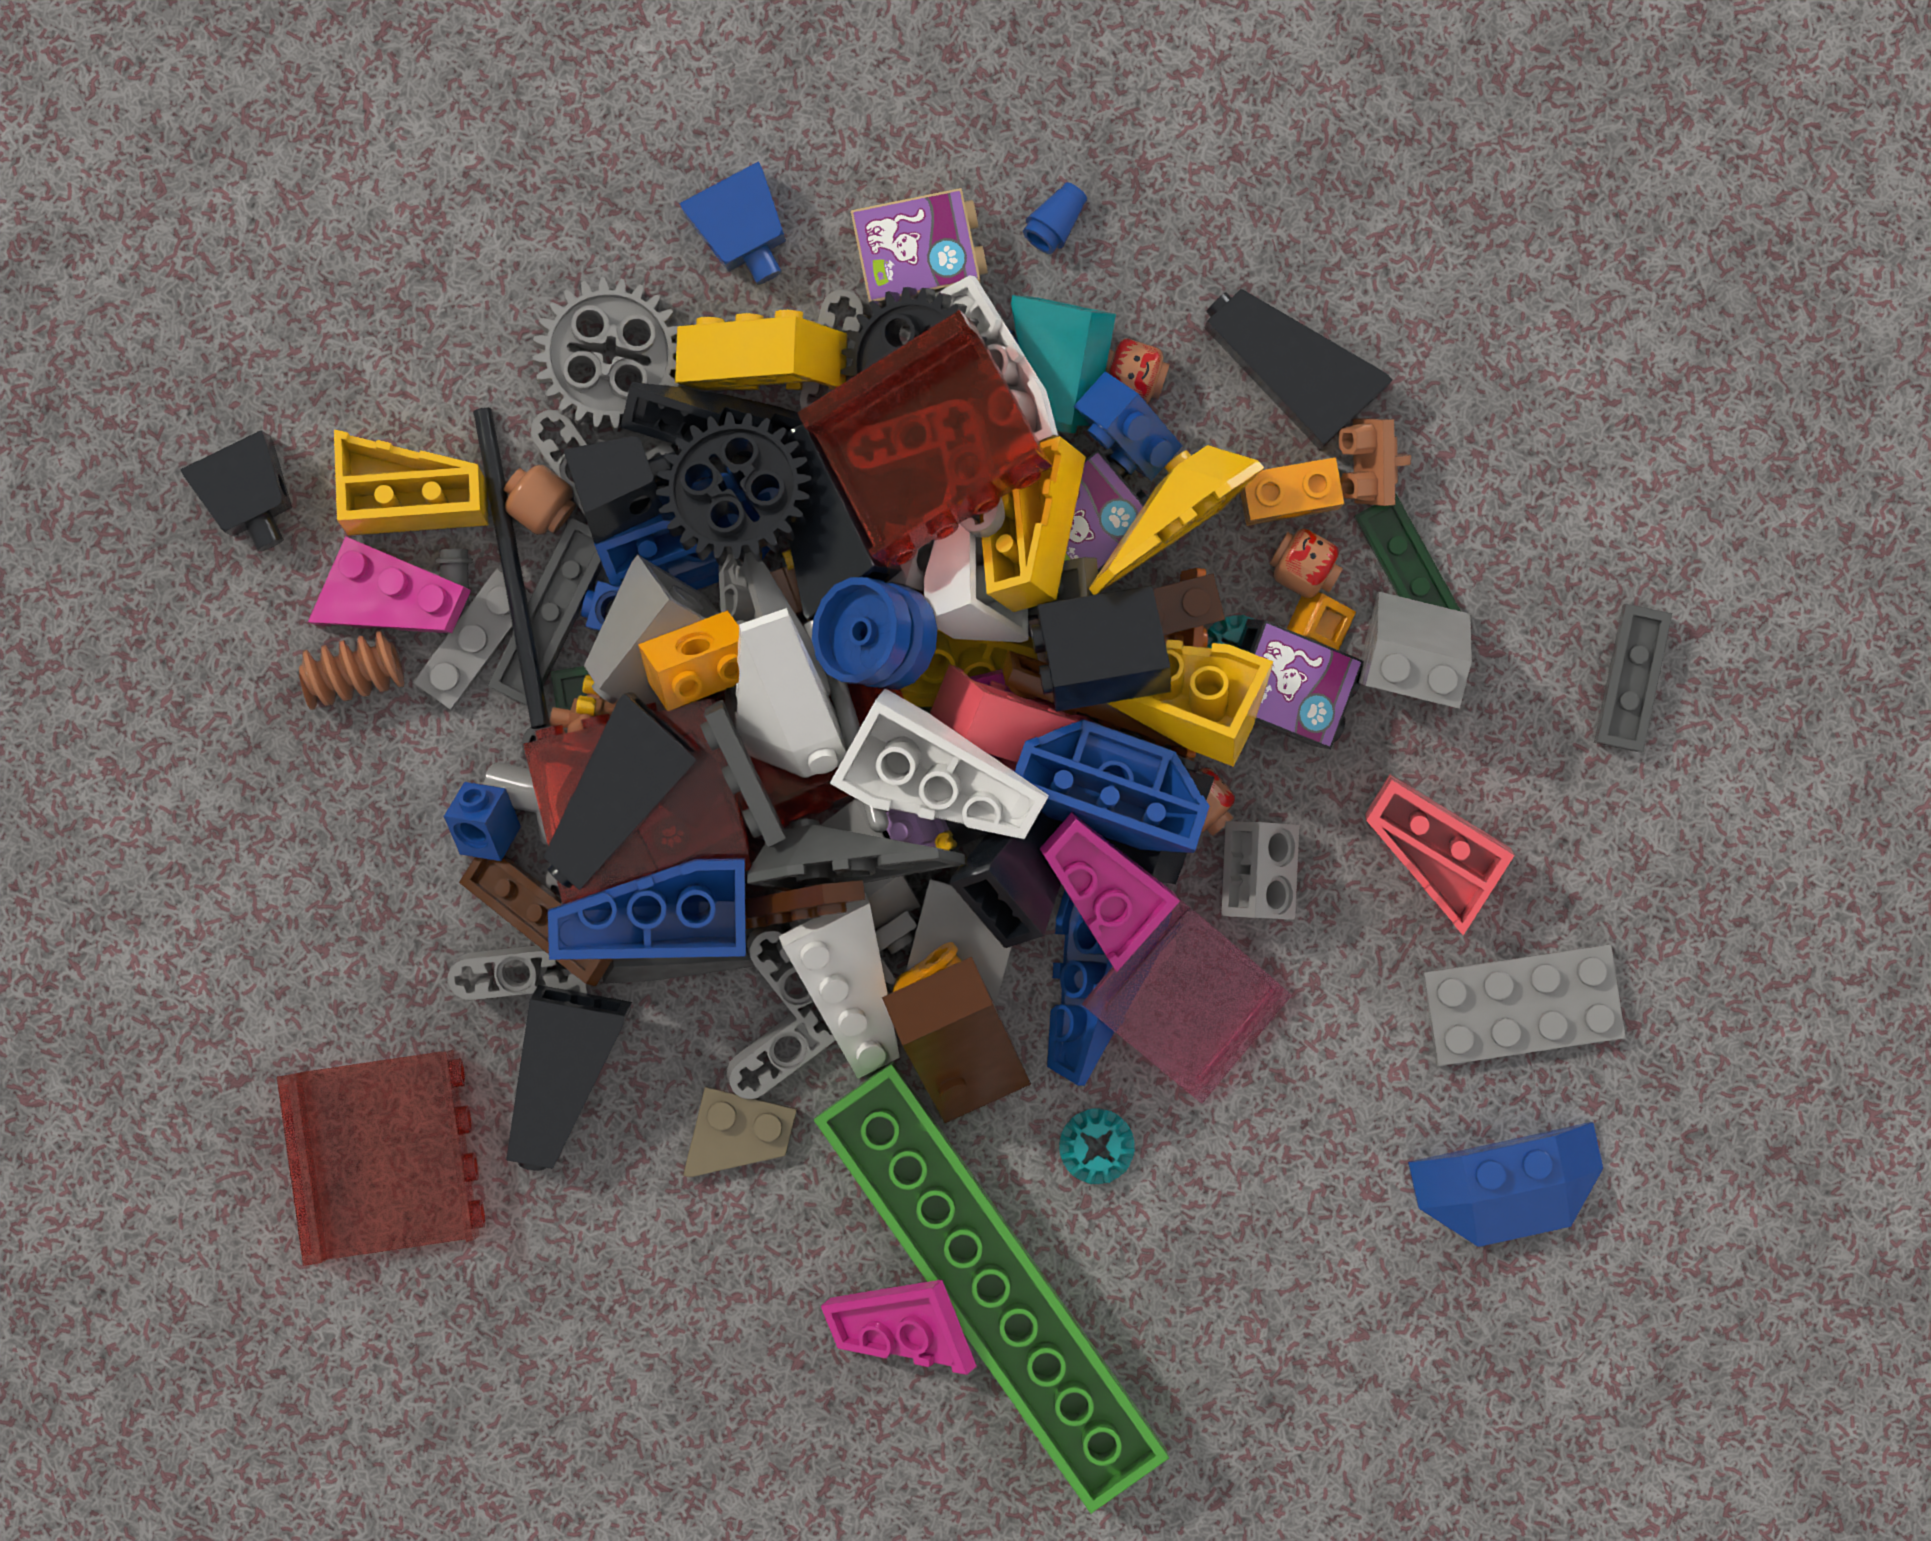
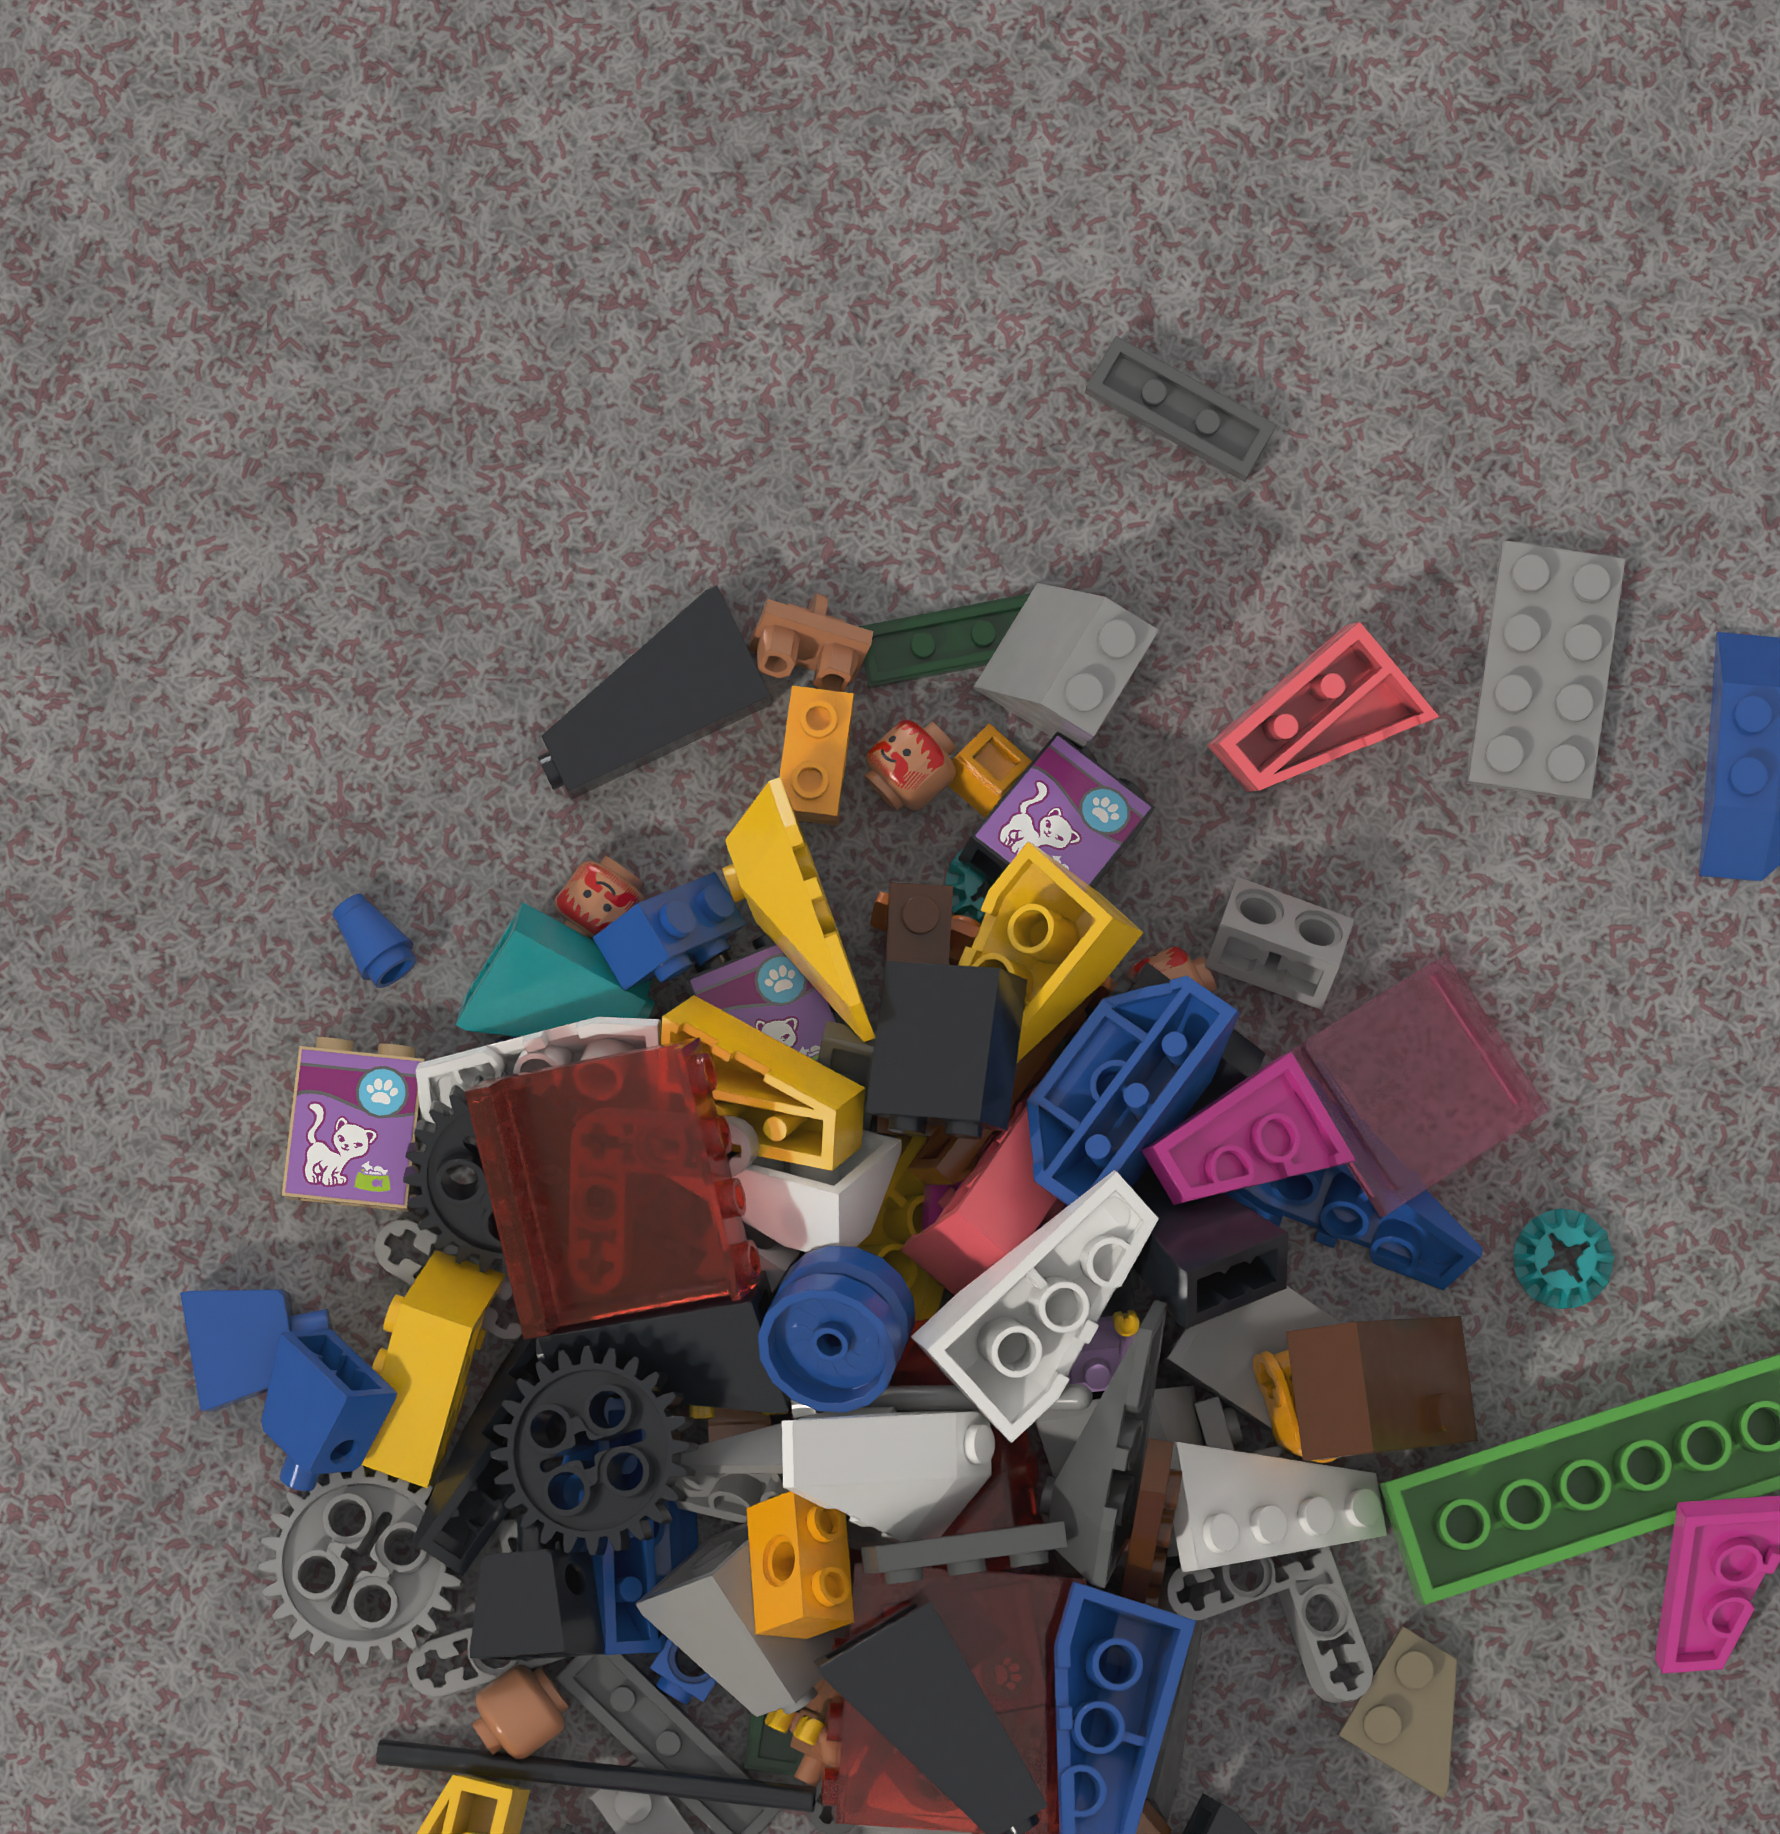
camera: 80 degrees left, 5 degrees down
(708, 287) = (322, 1406): none -> blue torso

